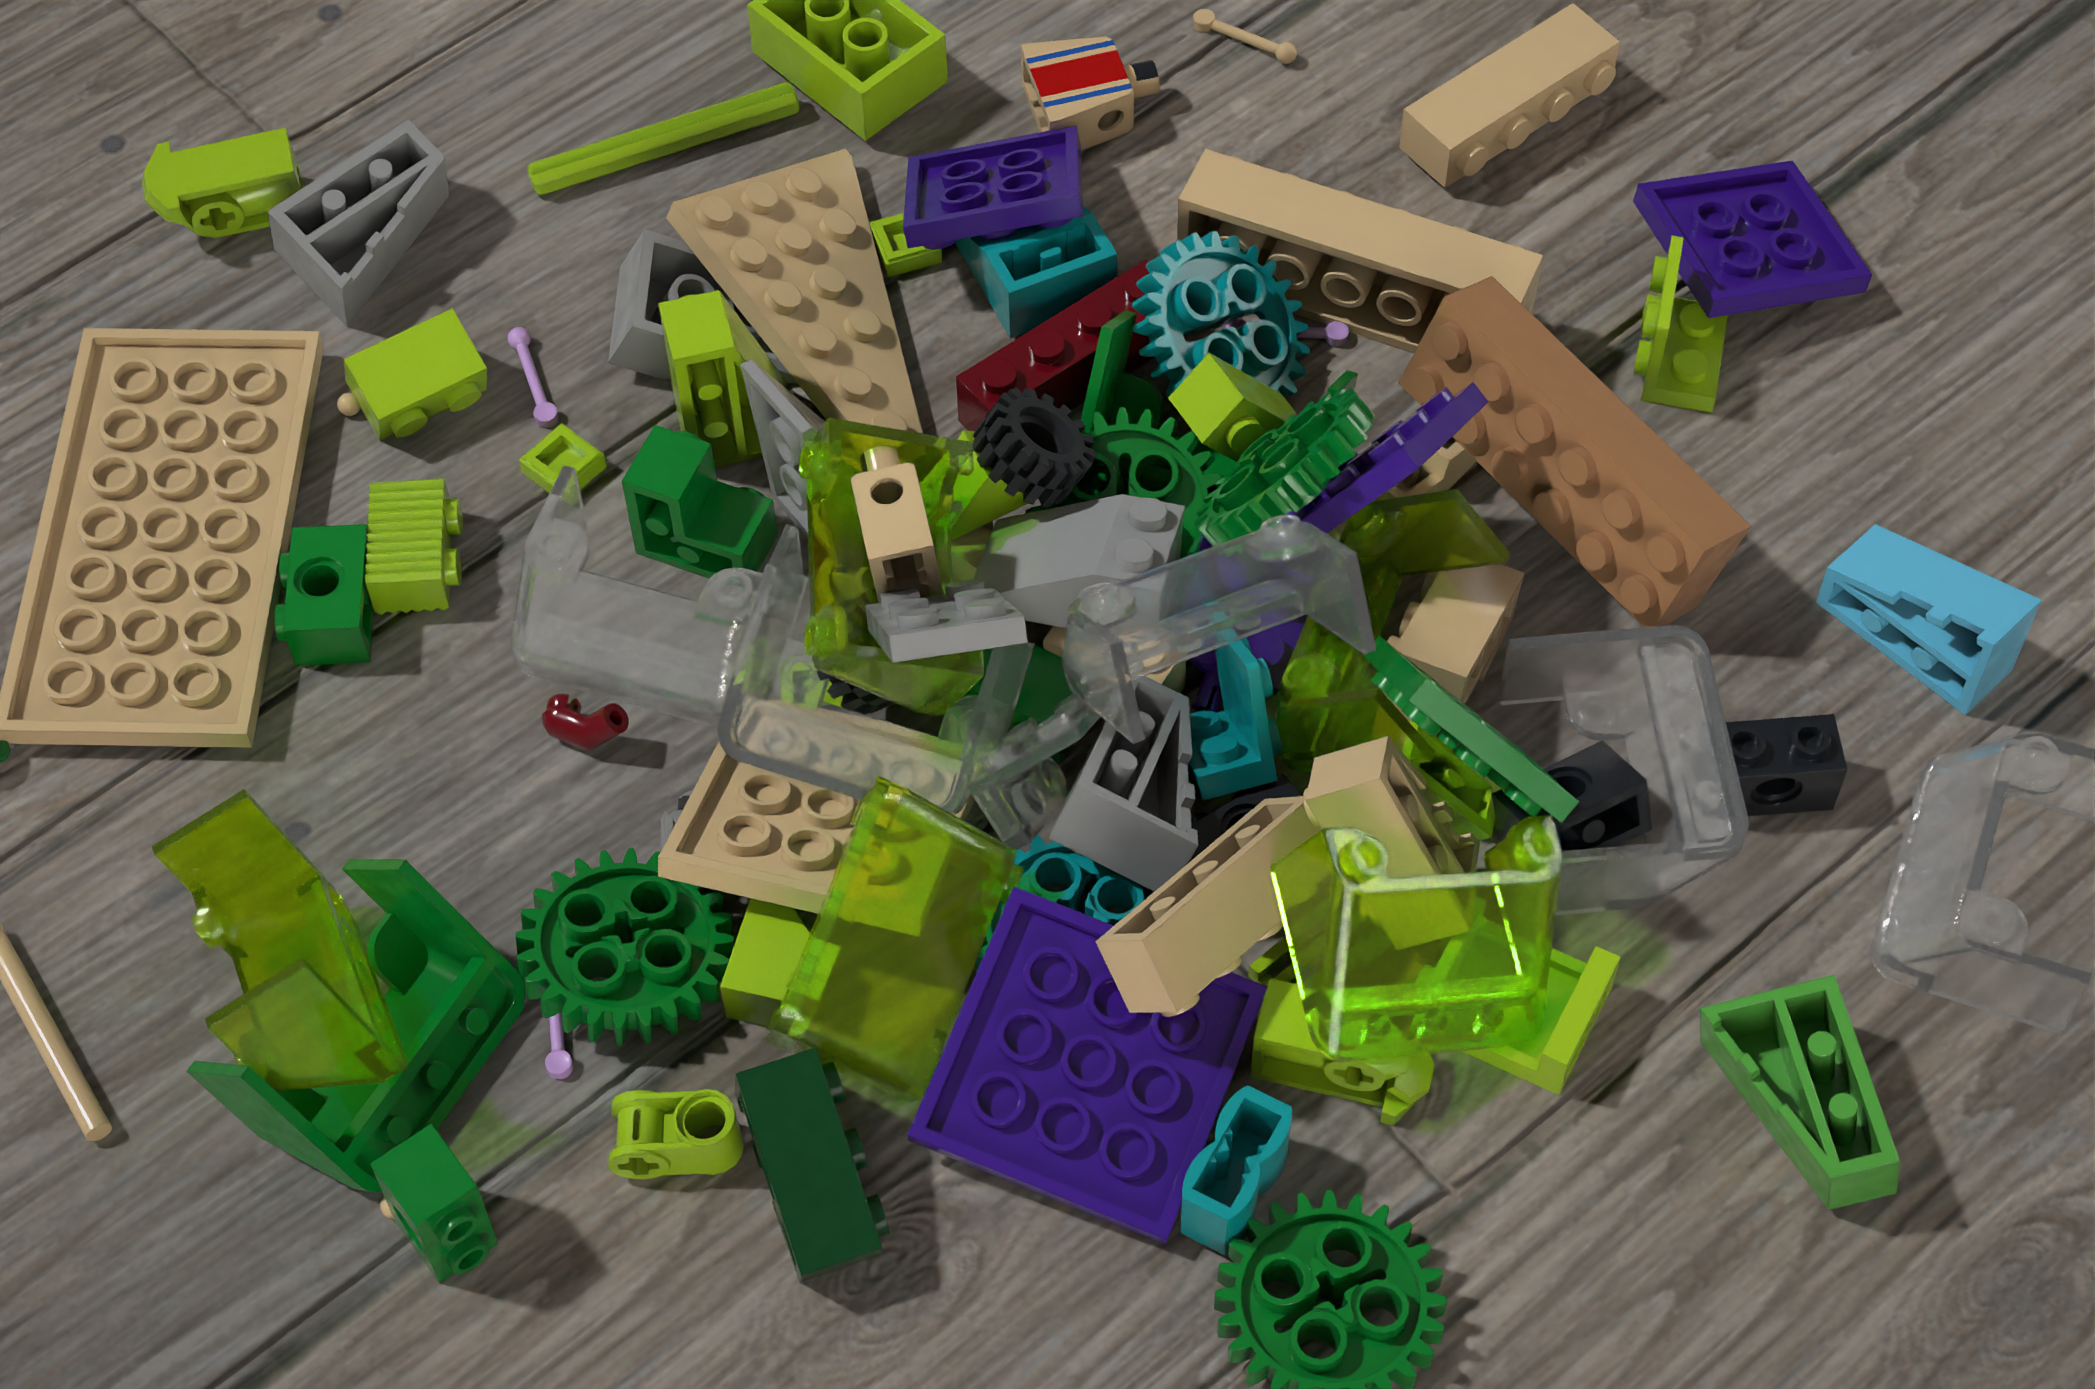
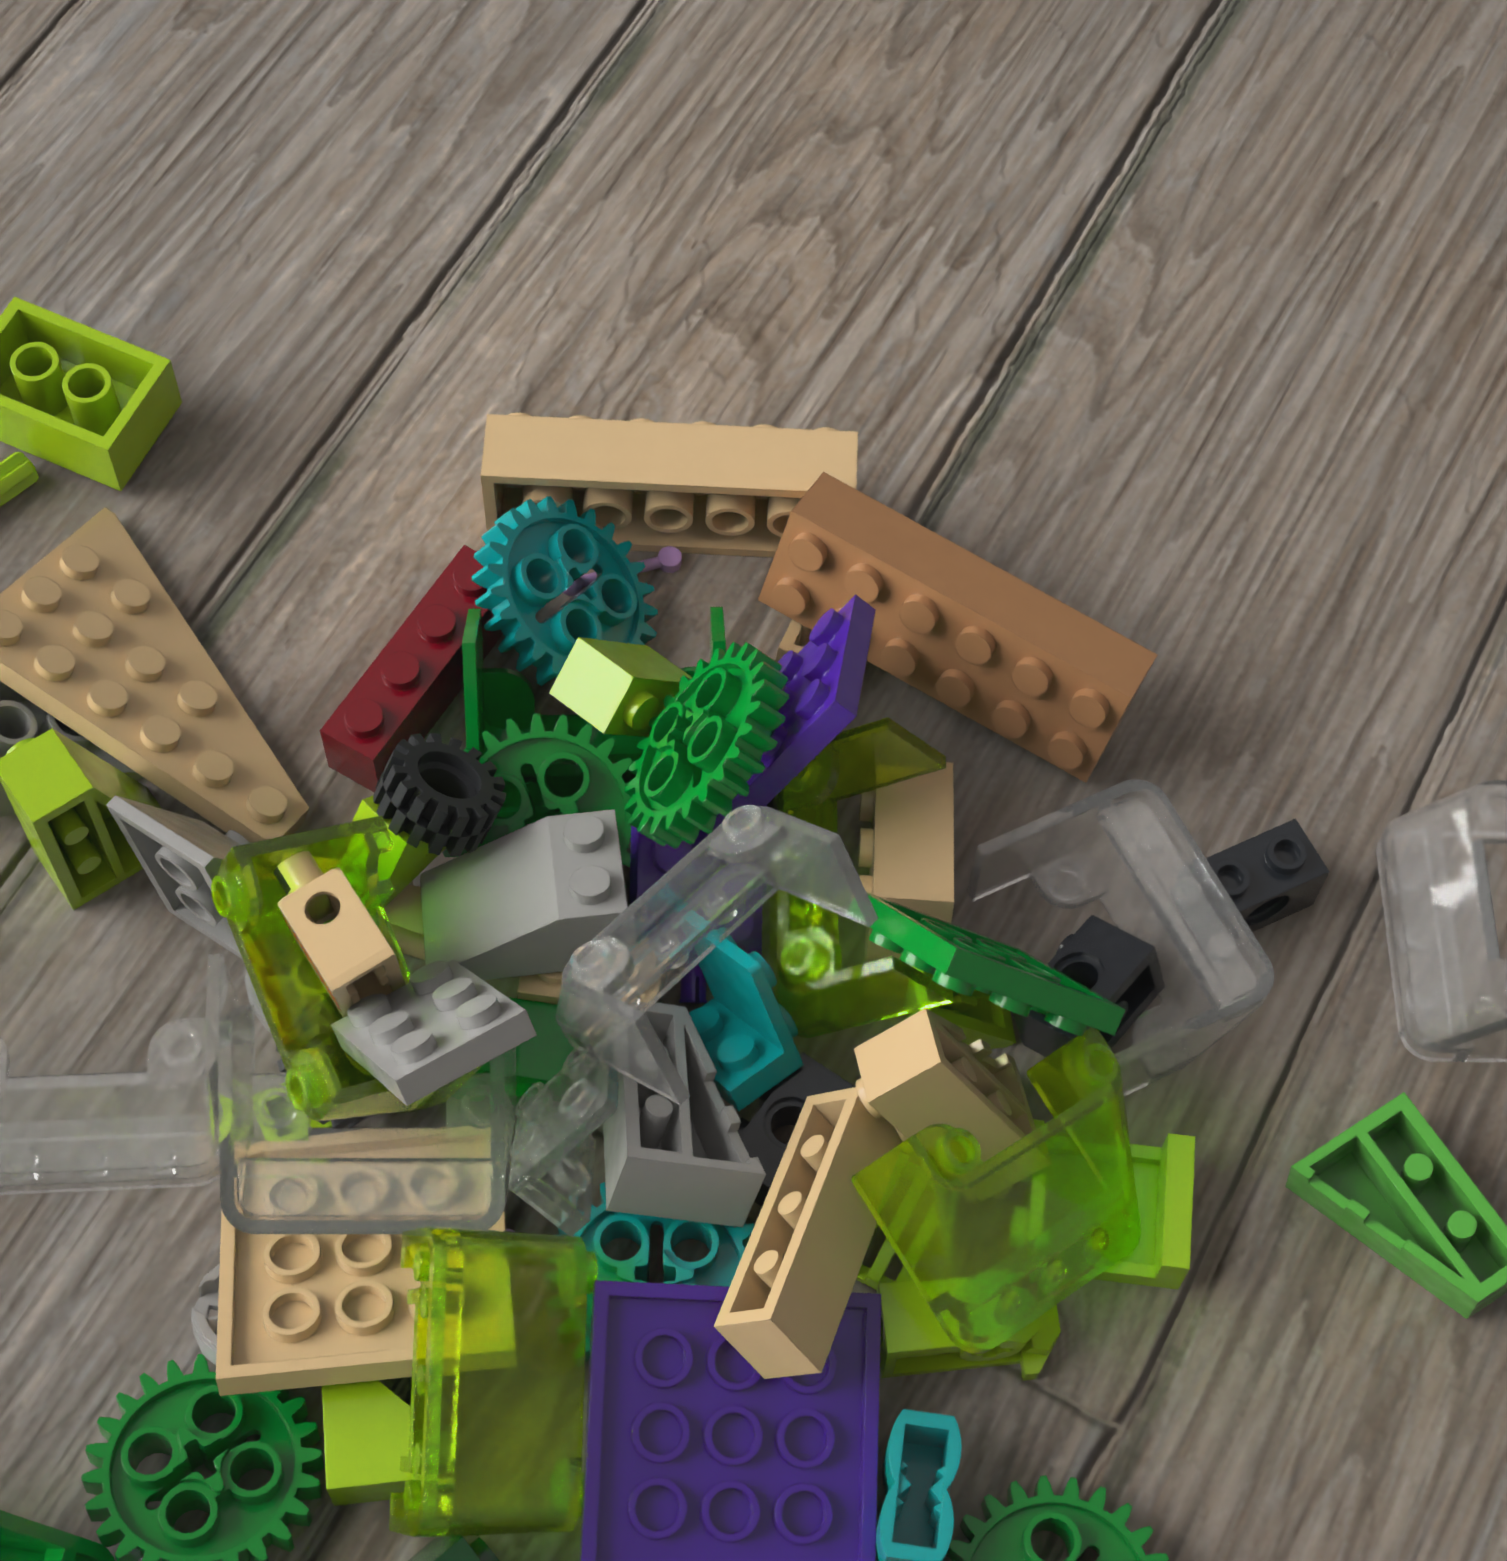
camera: 25 degrees left, 5 degrees up
(566, 723) = (45, 1240): dark red arm -> none
(690, 517) = (101, 968): green brick -> none
(893, 249) = (204, 590): lime tile -> none
(993, 188) = (279, 512): dark purple plate -> none
(1040, 269) = (339, 563): teal slope -> none
(1084, 87) = (325, 377): tan torso -> none
(1205, 21) = (417, 265): tan hinge -> none
(1509, 95) = (747, 265): tan brick -> none
(1684, 344) = (1001, 469): lime bracket -> none
(1752, 238) = (1027, 348): dark purple plate -> none
(1929, 614) = (1333, 682): medium azure wedge -> none

